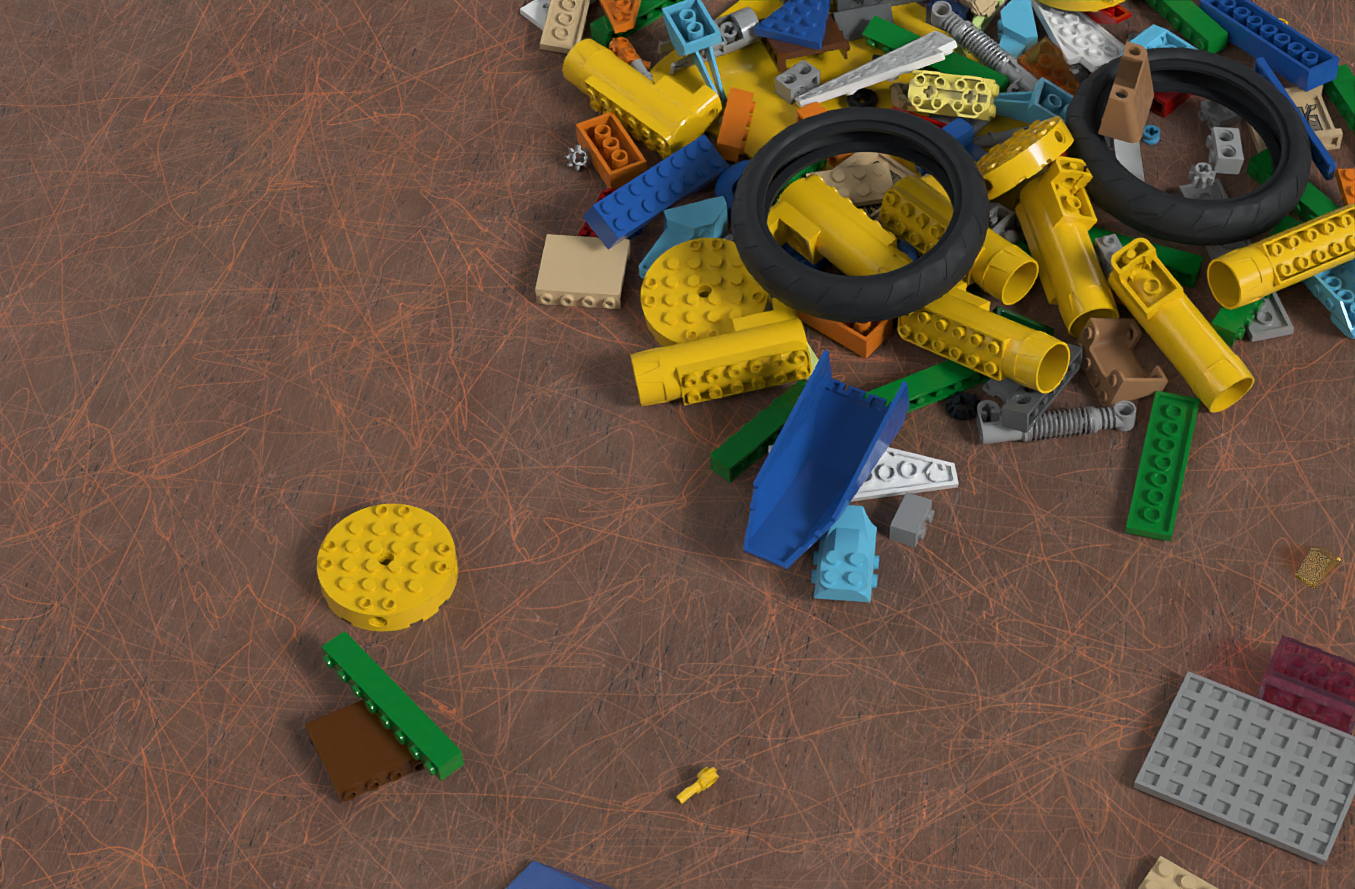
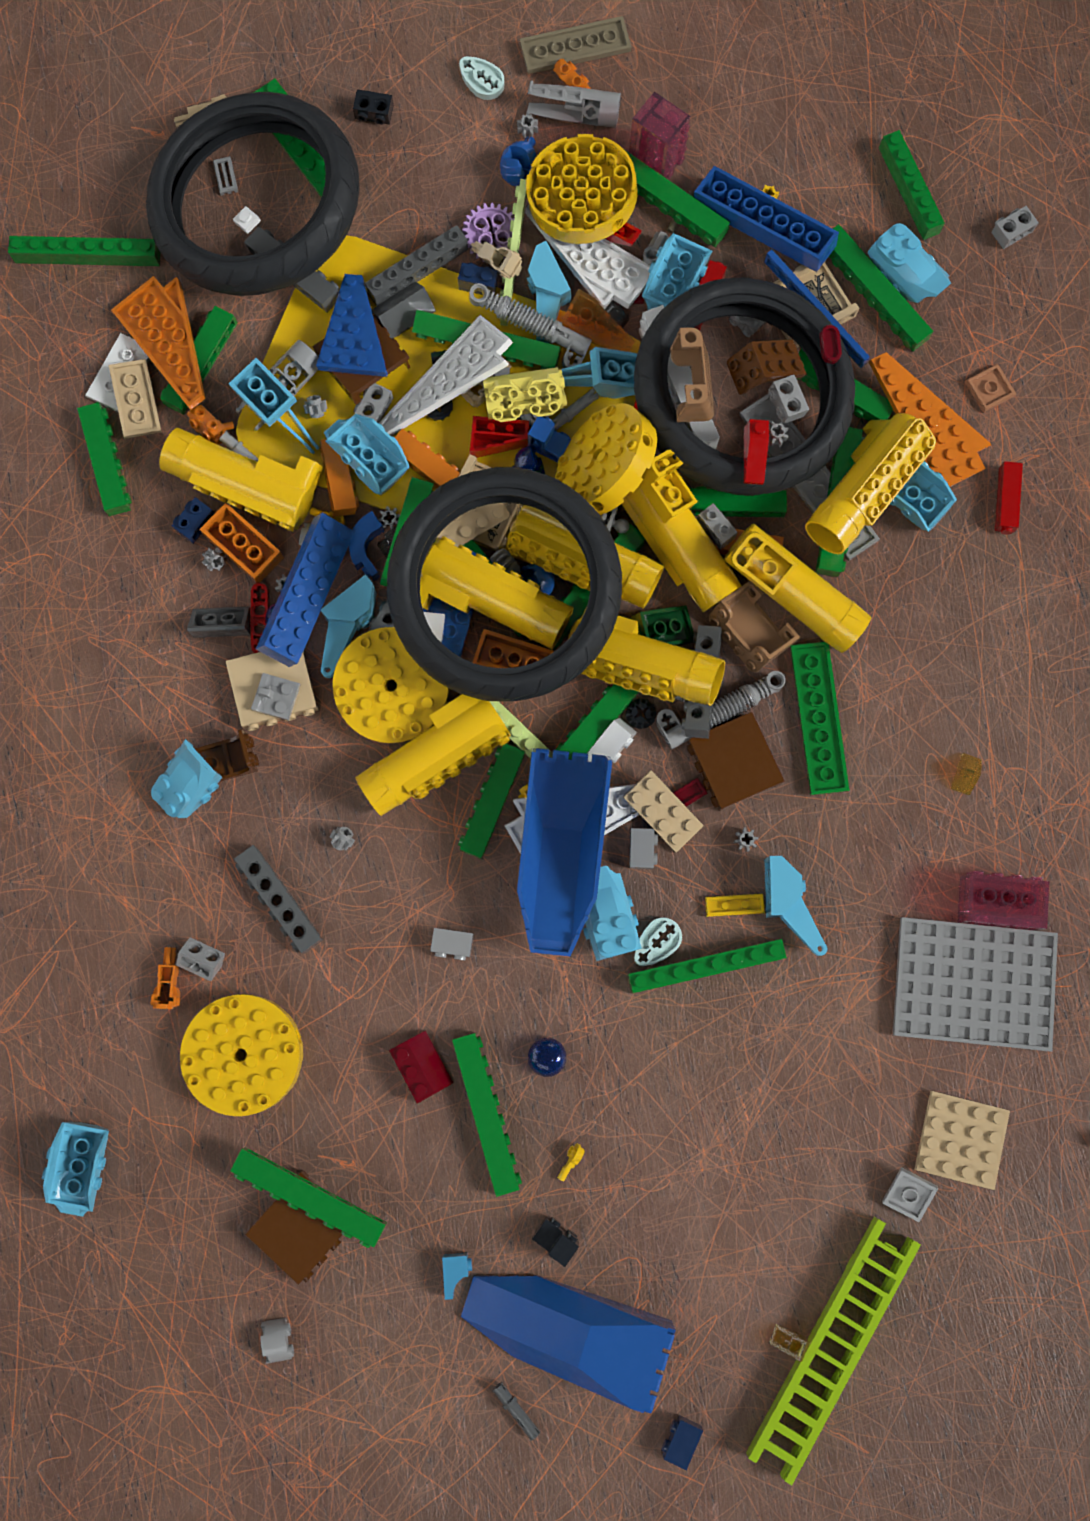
camera: 25 degrees left, 30 degrees up
(158, 606) = (75, 1167): none -> medium azure slope
(280, 848) = (275, 1340): none -> light grey cylinder
(348, 478) = (167, 974): none -> orange piece
(389, 469) = (200, 959): none -> light grey brick
(457, 317) = (185, 783): none -> medium azure slope
(497, 448) = (254, 856): none -> dark grey brick
(504, 316) = (231, 756): none -> reddish brown bracket
(511, 58) = (104, 459): none -> green brick
(515, 843) = (454, 1269): none -> dark azure arch
(554, 211) = (219, 622): none -> dark grey slope
(564, 124) = (192, 519): none -> dark blue brick
(573, 640) = (421, 1066): none -> dark red slope
(582, 273) = (275, 696): none -> light grey hinge
(590, 414) = (342, 838): none -> light grey gear
(623, 708) = (486, 1114): none -> green brick
(646, 851) = (558, 1242): none -> black brick
(662, 539) = (452, 943): none -> light grey brick
(717, 677) = (547, 1057): none -> clear blue cylinder
(738, 67) = (315, 406): none -> light grey gear
(773, 103) = (369, 451): none -> medium azure slope
(888, 601) = (667, 947): none -> light aqua piece
(923, 417) = (613, 740): none -> white wedge
(938, 646) = (706, 966): none -> green brick
(950, 491) = (663, 811): none -> tan plate
(982, 491) = (690, 792): none -> dark red tile
(995, 606) = (734, 905): none -> yellow tile
(1033, 546) = (748, 835): none -> light grey gear
(1049, 471) = (735, 761): none -> reddish brown panel
(1055, 610) = (784, 900): none -> medium azure slope
(1172, 178) = (755, 451): none -> red slope
(1208, 106) = (764, 362): none -> reddish brown bracket
(1290, 126) = (830, 344): none -> dark red tile

